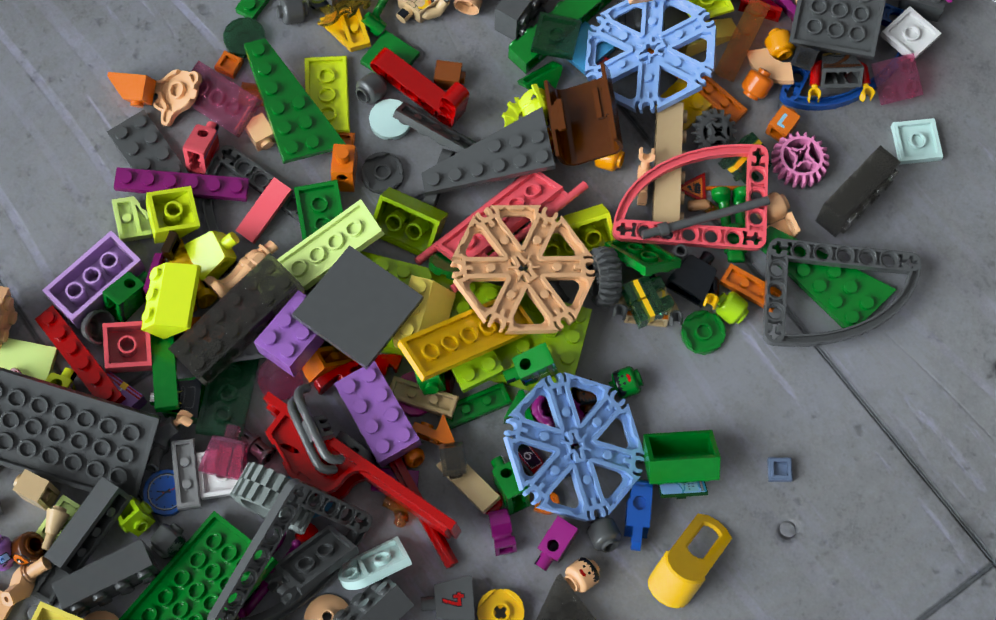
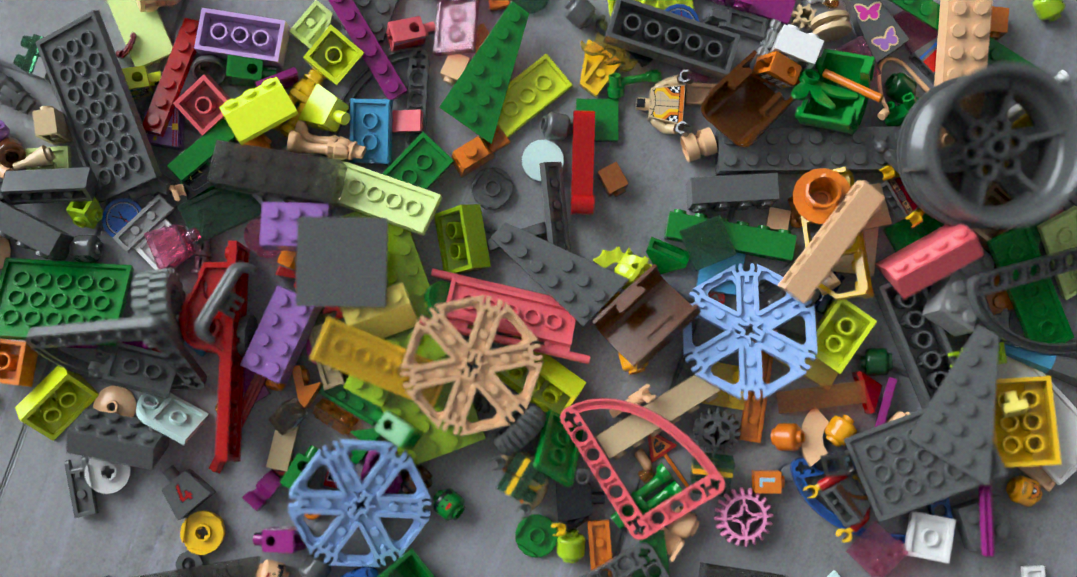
camera: 60 degrees right, 15 degrees up
(171, 245) = (306, 75): dark brown tile -> none
(257, 226) = (372, 128): none -> dark azure tile
(488, 423) = (343, 420): none -> clear orange hinge
(665, 228) = (591, 452): dark grey bar -> none

